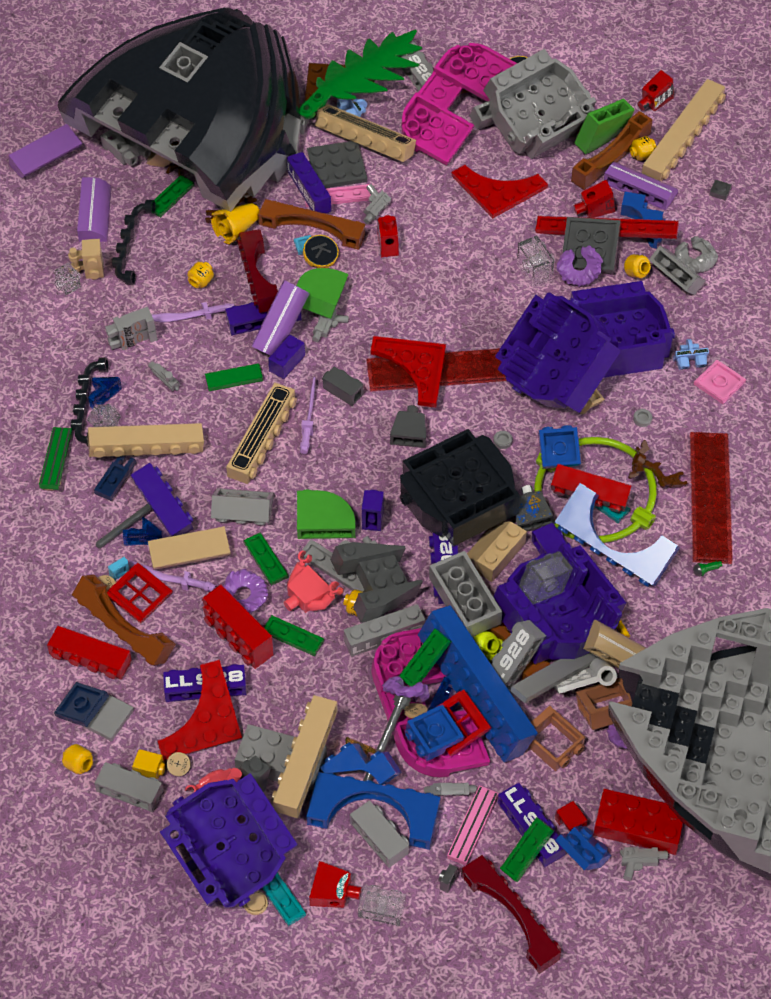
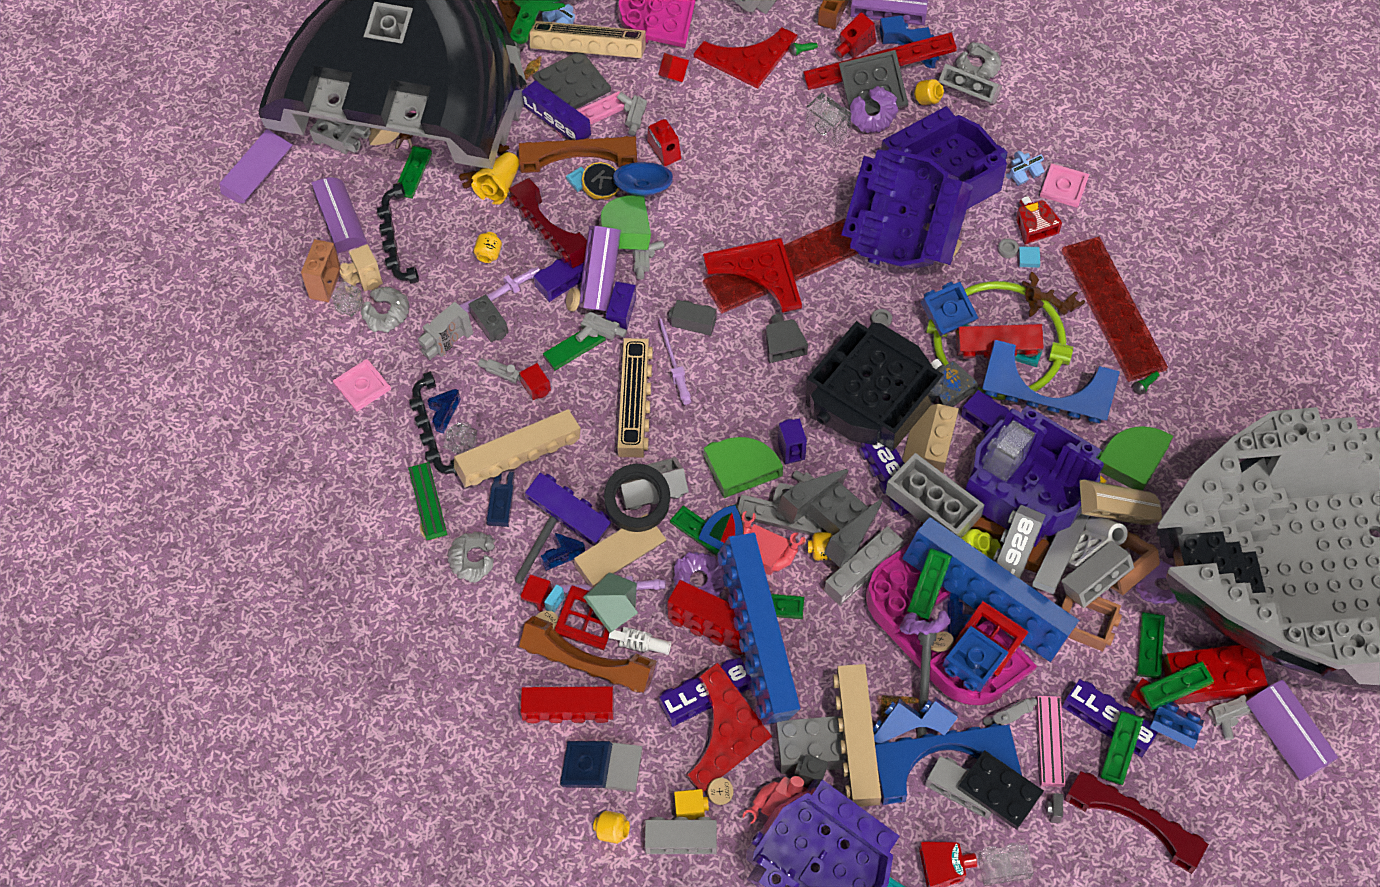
camera: 20 degrees left, 5 degrees up
(48, 351) = (361, 385): none -> bright pink tile
(50, 262) = (319, 268): none -> nougat window
(62, 505) = (458, 556): none -> light grey piece
(101, 304) = (396, 314): none -> light grey piece
(106, 556) = (536, 591): none -> red panel
(162, 584) = (613, 600): none -> sand green slope
(172, 625) = (640, 641): none -> white hinge
(173, 331) = (488, 318): none -> dark grey brick
(187, 394) = (535, 382): none -> red brick
(214, 487) = (643, 472): none -> black tyre
(249, 338) = (573, 299): none -> tan piece
(257, 364) = (596, 325): none -> light grey piece
(259, 641) = (758, 629): none -> blue brick
(280, 561) = (722, 525): none -> shield
(308, 142) = (532, 67): none -> clear yellow bar
(354, 260) = (643, 178): none -> blue dish
(405, 844) = (1000, 790): none -> black plate
(427, 178) = (673, 67): none -> red panel
(541, 195) = (795, 48): none -> green piece
(573, 701) = (1097, 574): none -> light grey brick
(596, 815) = (1176, 685): none -> green tile
(598, 780) = (1151, 645): none -> green tile
(657, 431) = (1029, 257): none -> medium azure tile
(661, 618) = (1135, 455): none -> bright green brick
(678, 402) = (1036, 220): none -> red torso
(682, 890) = (1292, 730): none -> medium lavender brick

